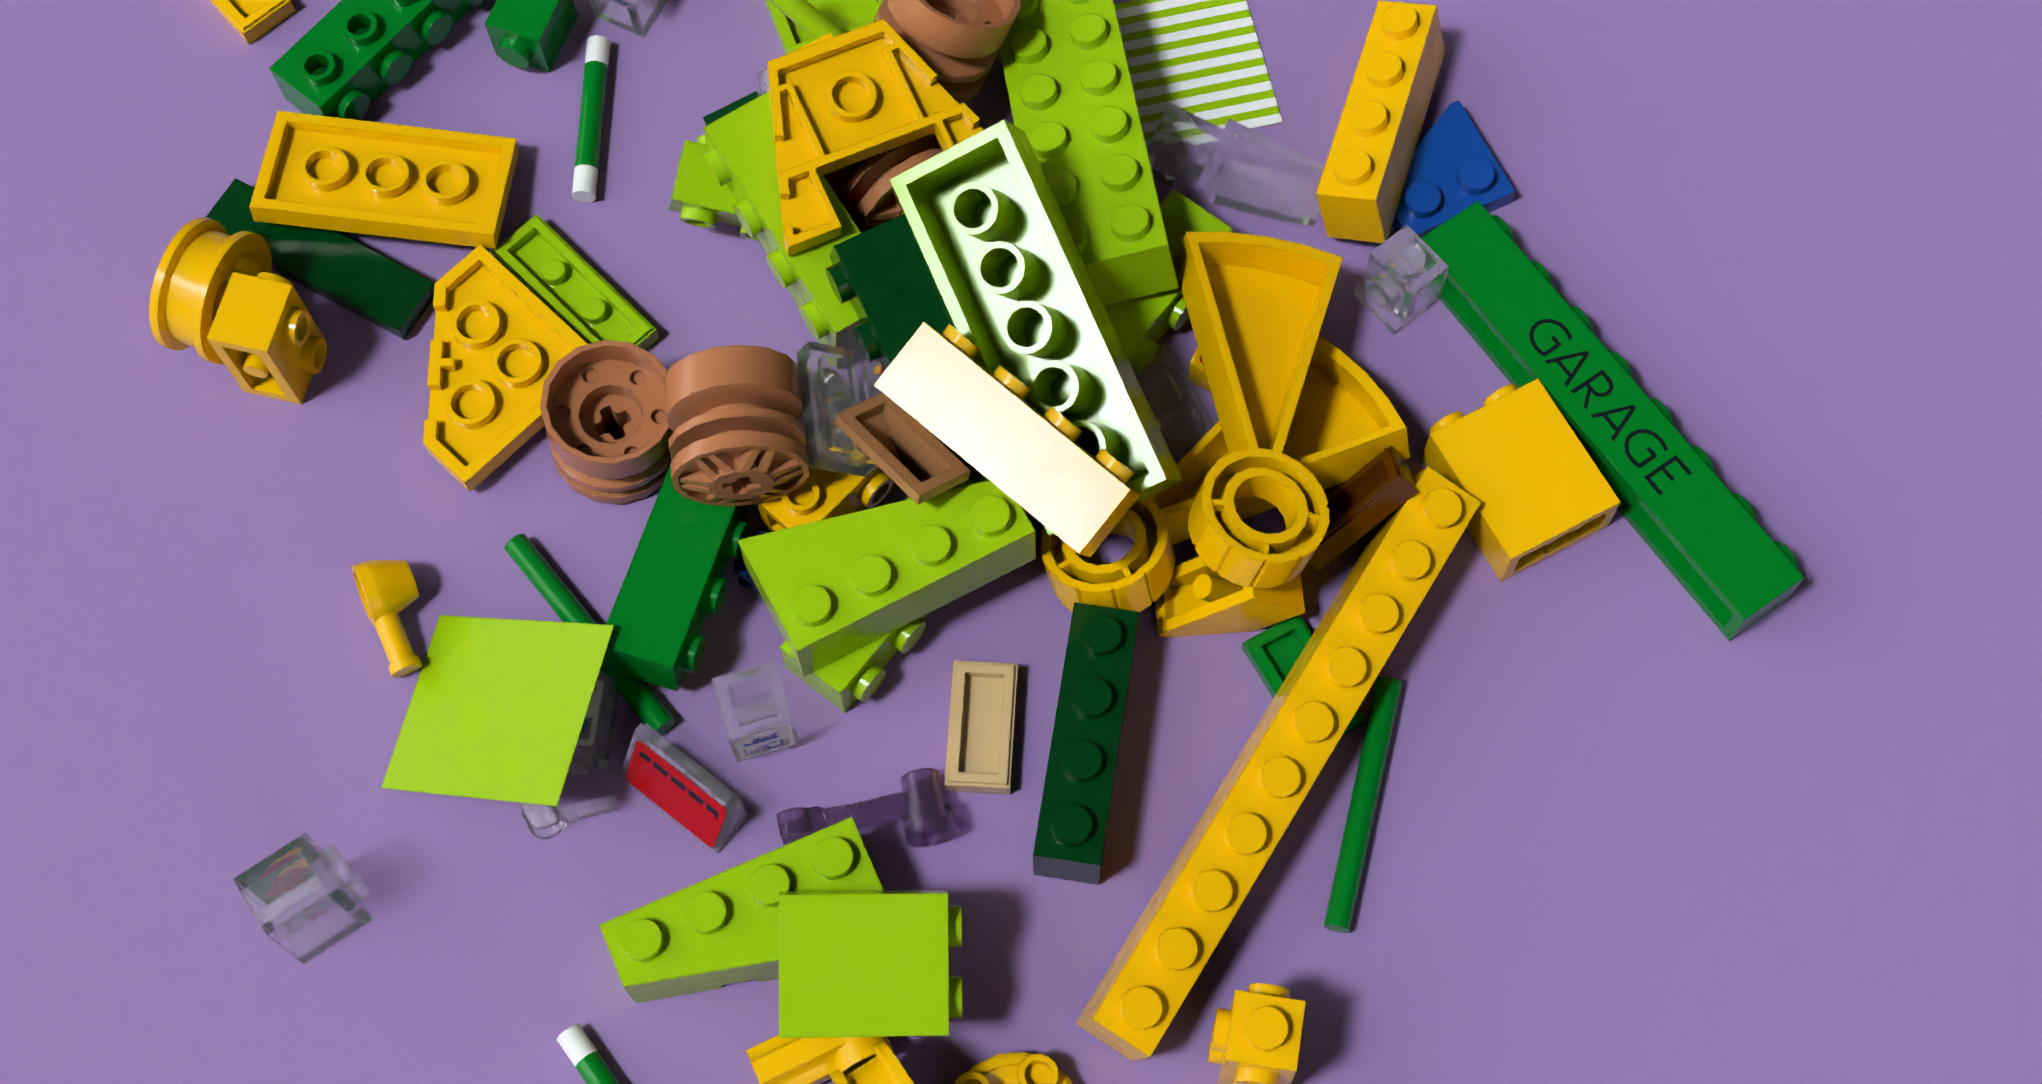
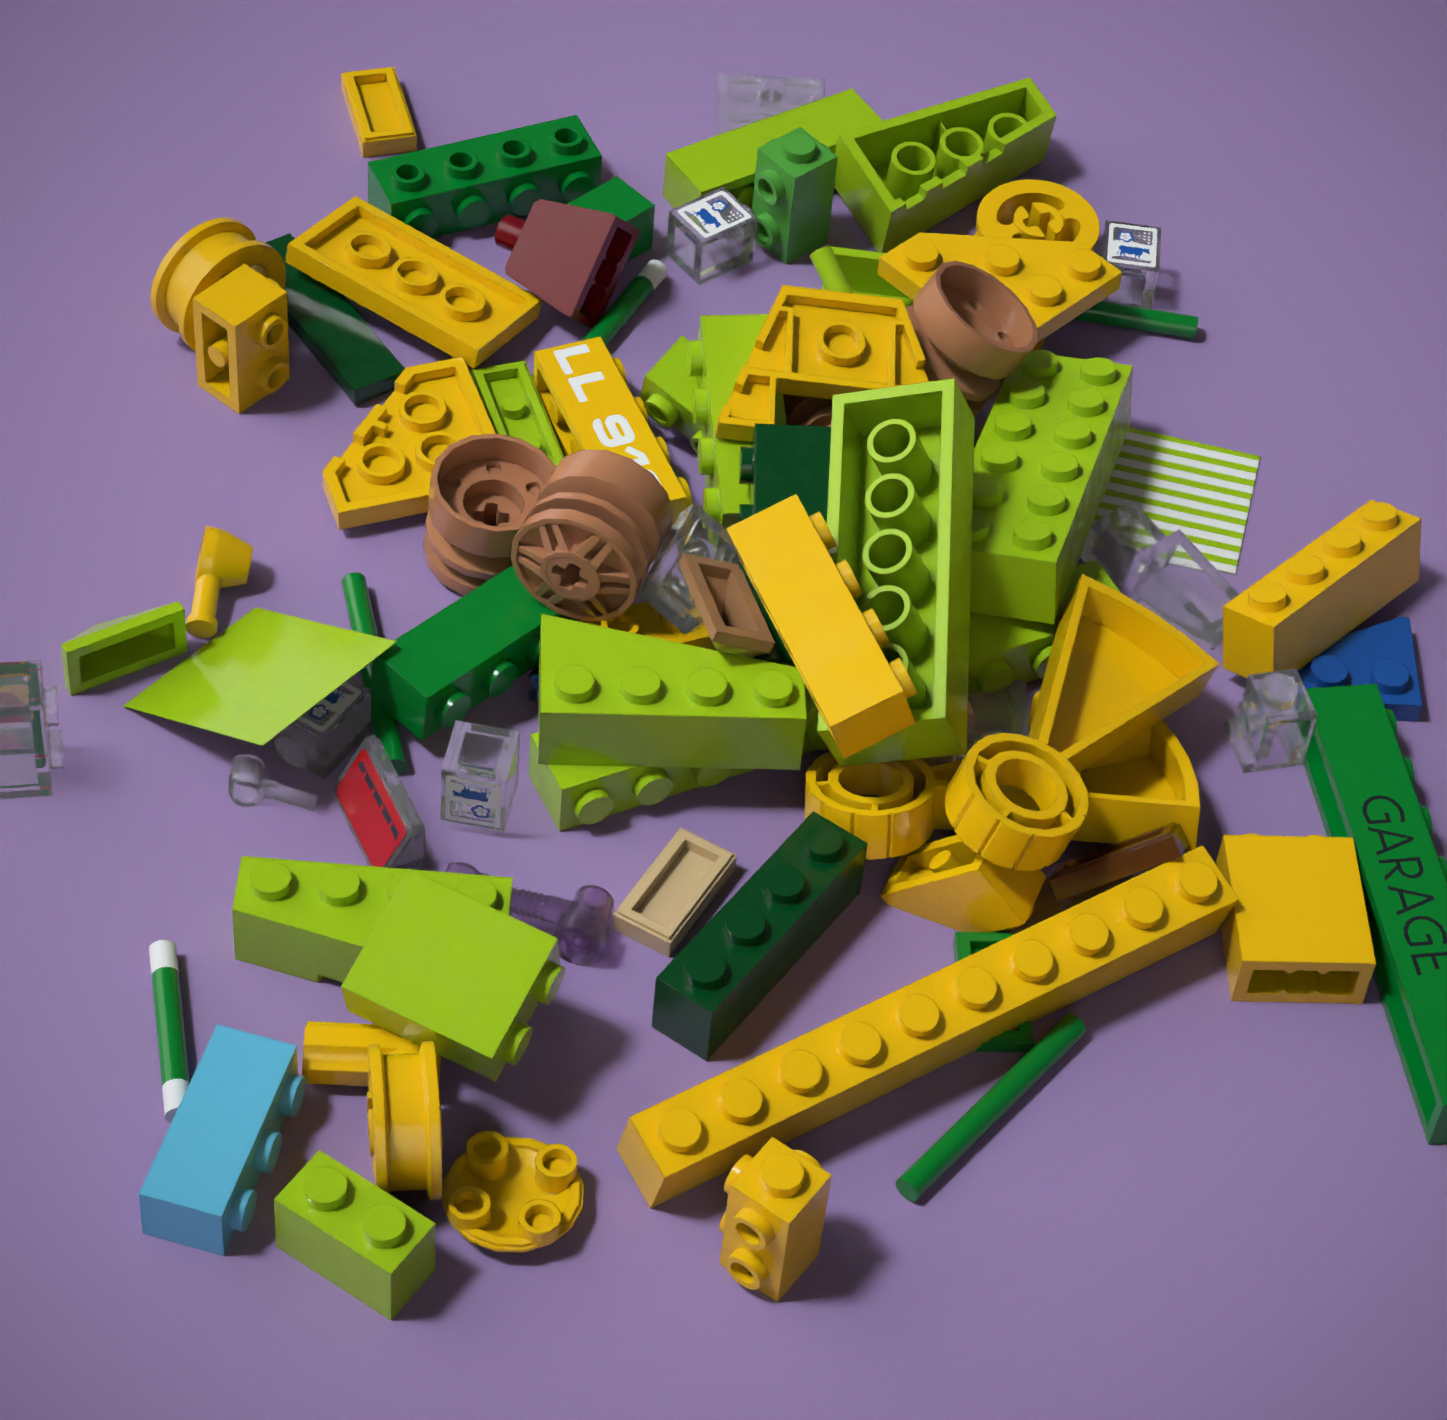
camera: 20 degrees right, 20 degrees down
(342, 728) = (123, 646): none -> lime slope
(517, 85) = (568, 256): none -> dark red torso
(662, 267) = (595, 410): none -> yellow brick

